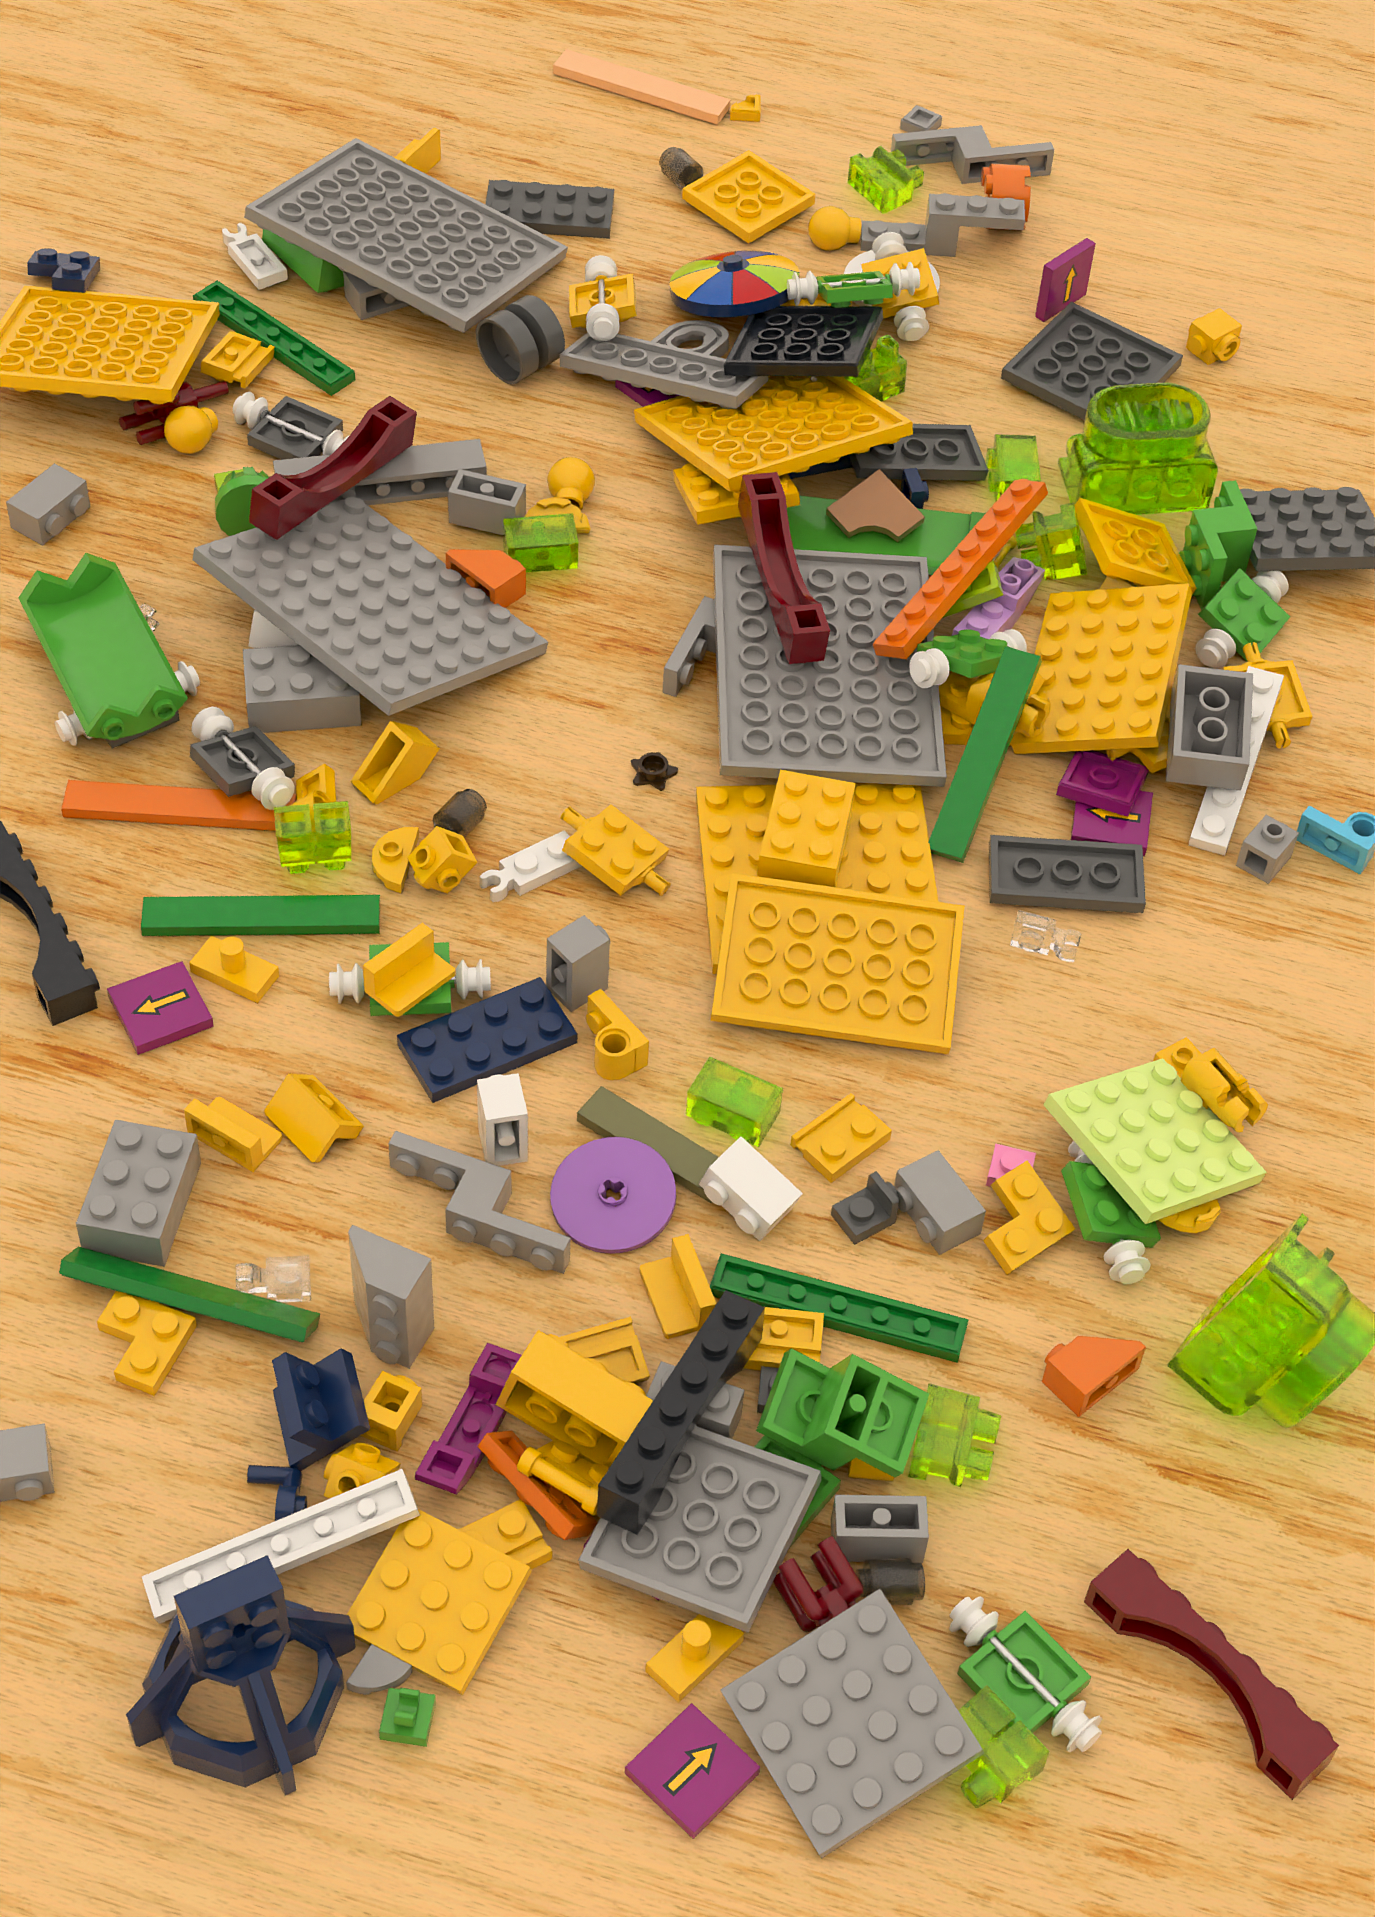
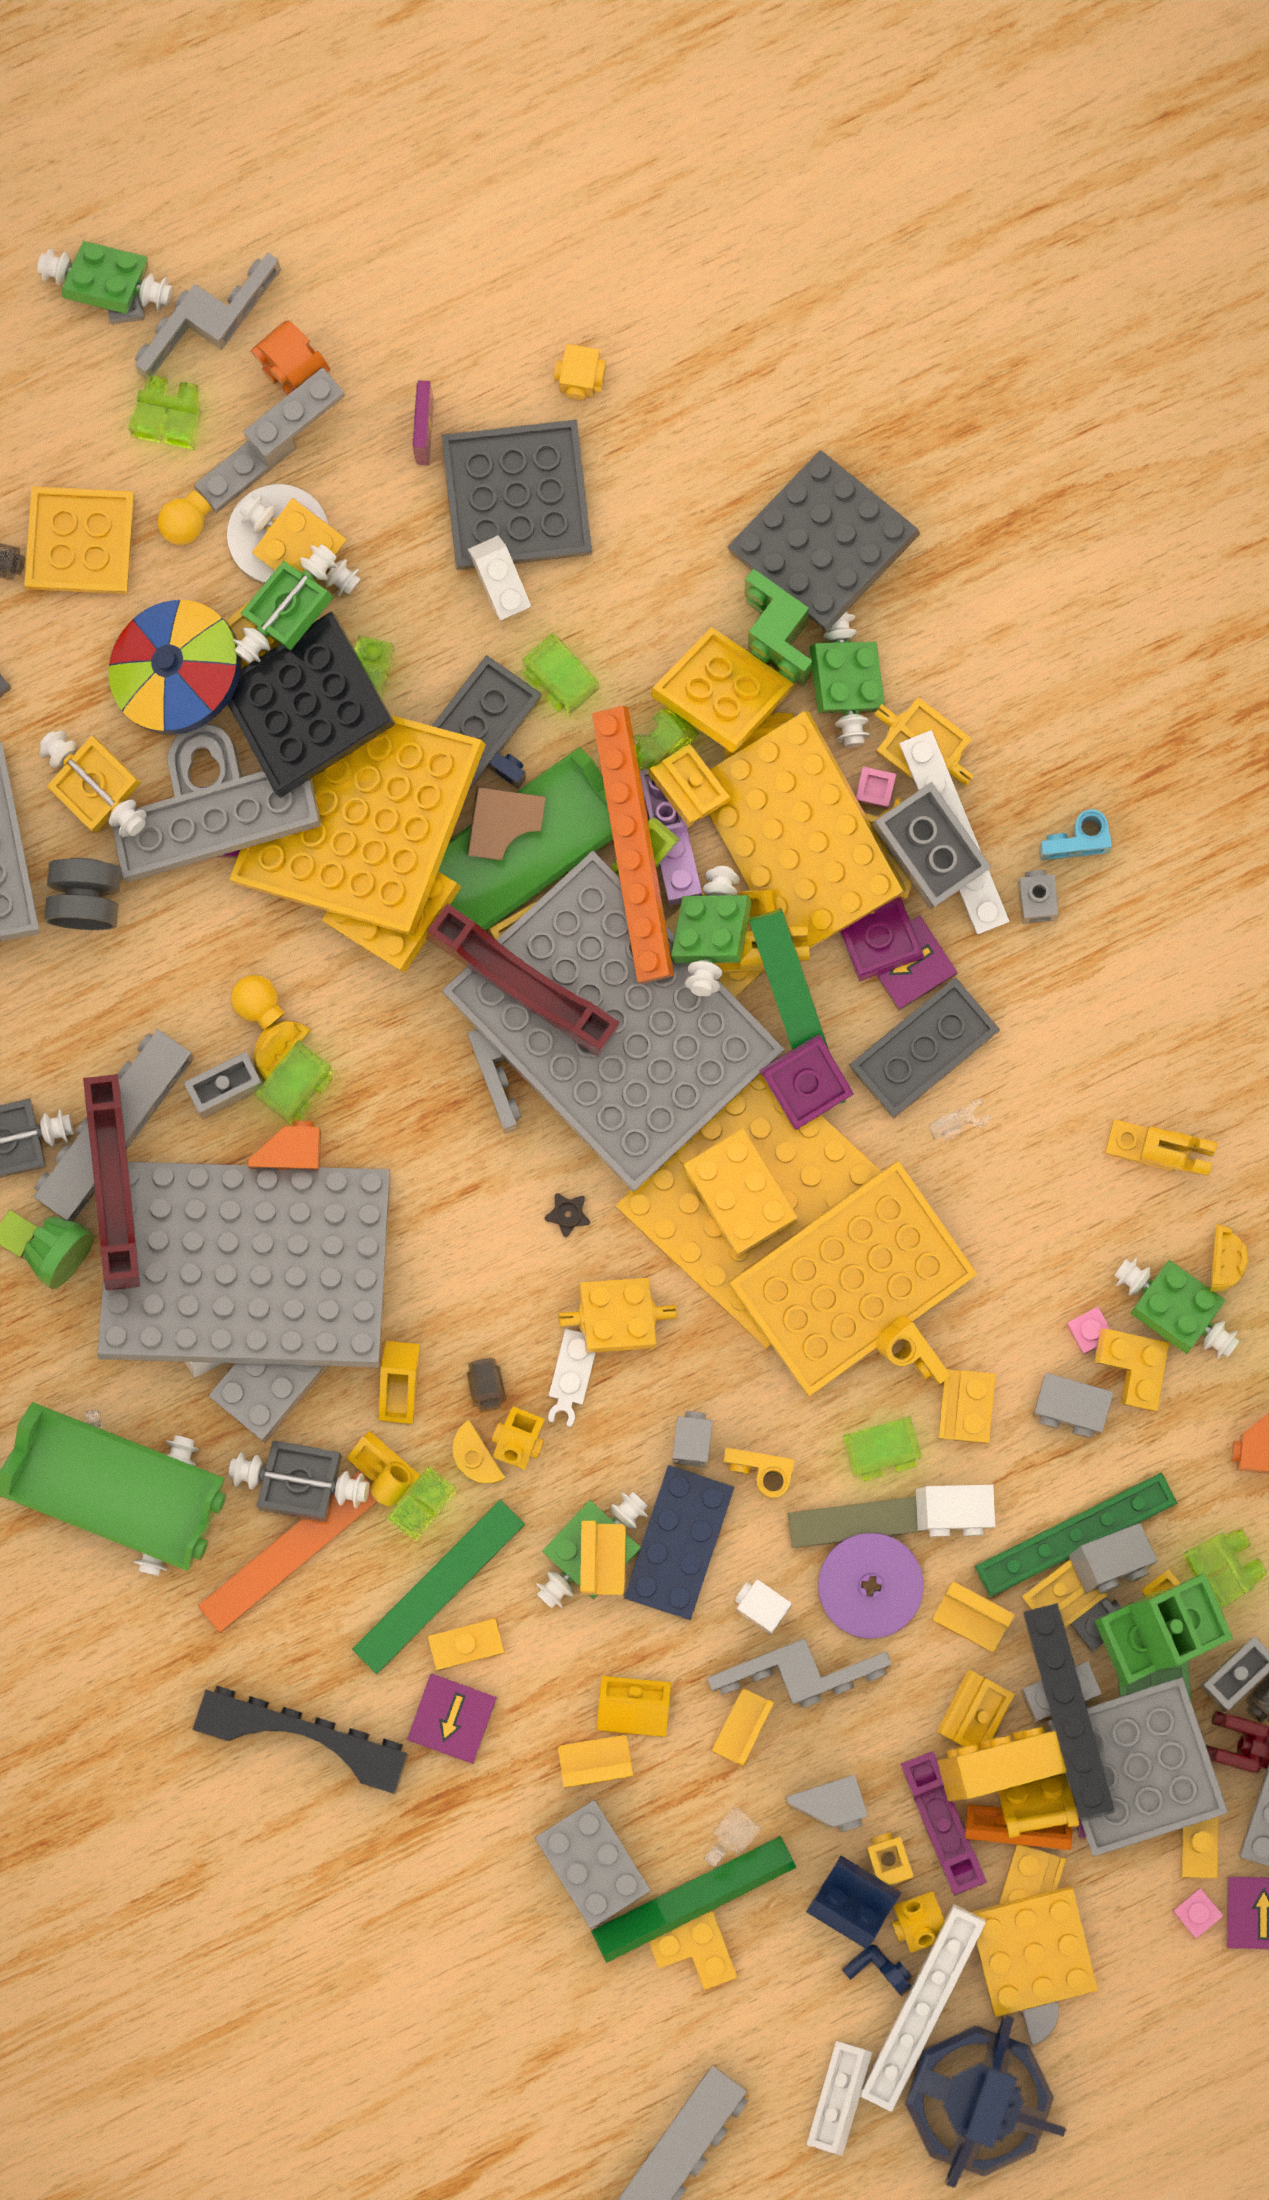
camera: 35 degrees left, 30 degrees up
(122, 1564) = (839, 2098): none -> white plate
(387, 1206) = (742, 1727): none -> yellow panel
(407, 1716) = (1082, 2030): bright green tile -> none
(628, 1713) = (1197, 1913): none -> bright pink plate
(841, 1047) = (914, 1348): none -> yellow plate
(848, 1327) = (1113, 1559): none -> light grey brick
(868, 1209) = (1032, 1448): dark grey bracket -> none
(922, 93) = (105, 277): none -> bright green plate
(941, 808) = (806, 1082): none -> magenta tile
(1028, 383) = (499, 577): none -> white brick
(1046, 577) = (689, 785): none -> yellow plate
(1143, 450) = (638, 616): clear neon green brick -> none
(1154, 1140) = (1166, 1233): yellowish green plate -> none

